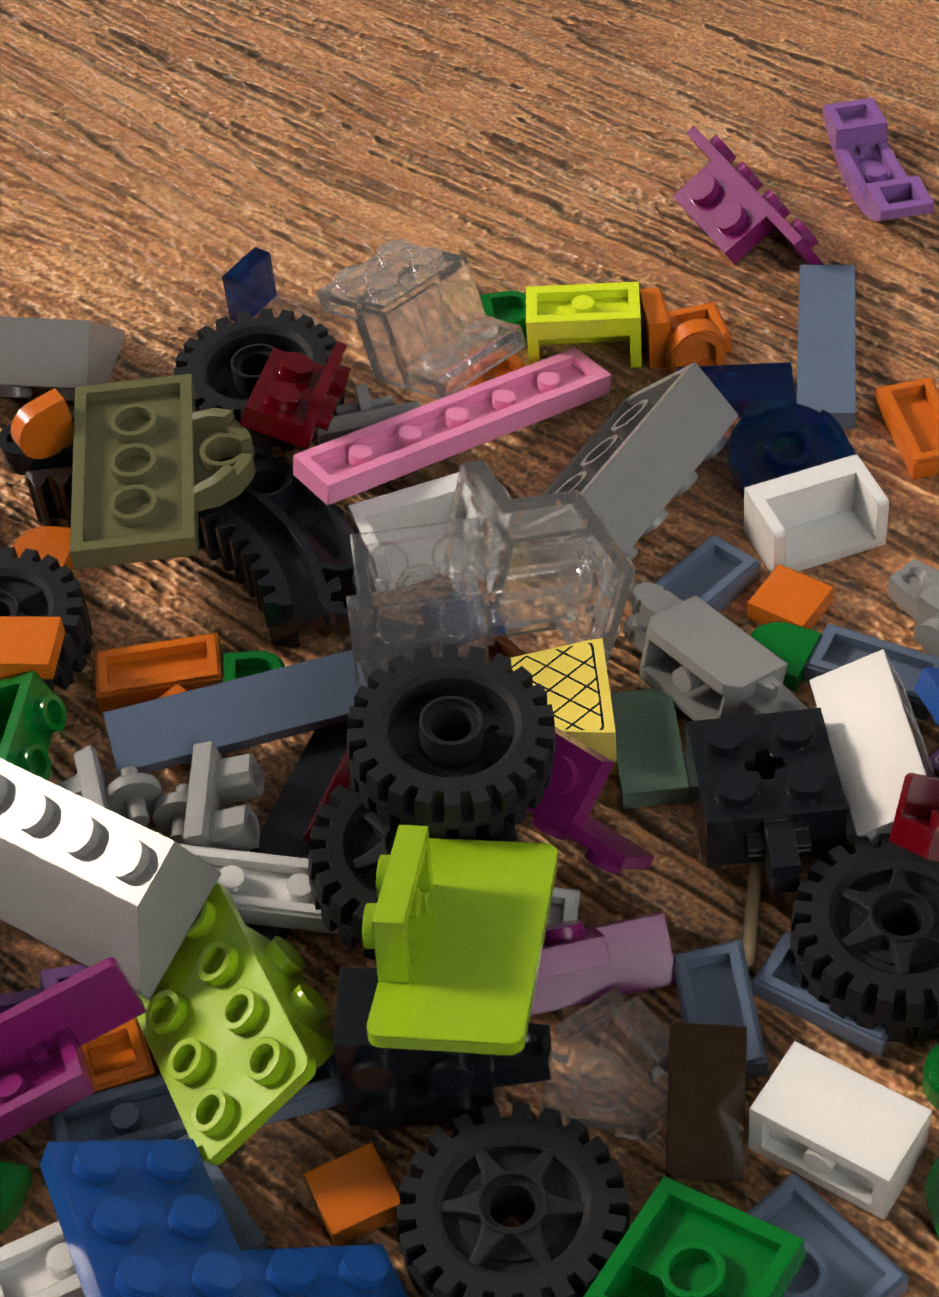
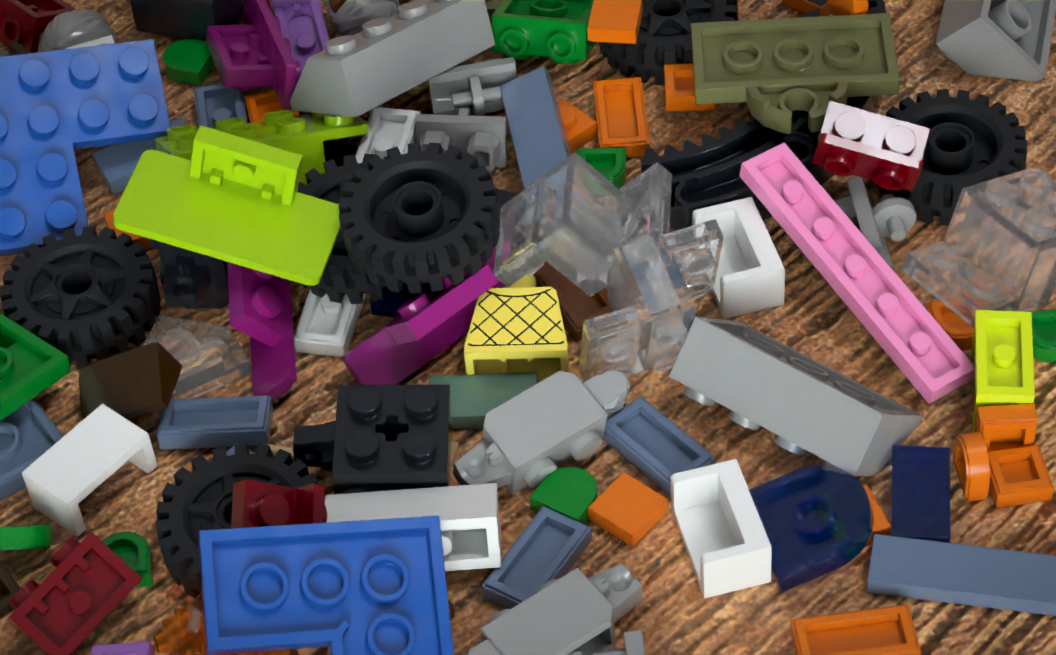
camera: 95 degrees right, 0 degrees up
(120, 602) = (681, 89): none -> orange plate

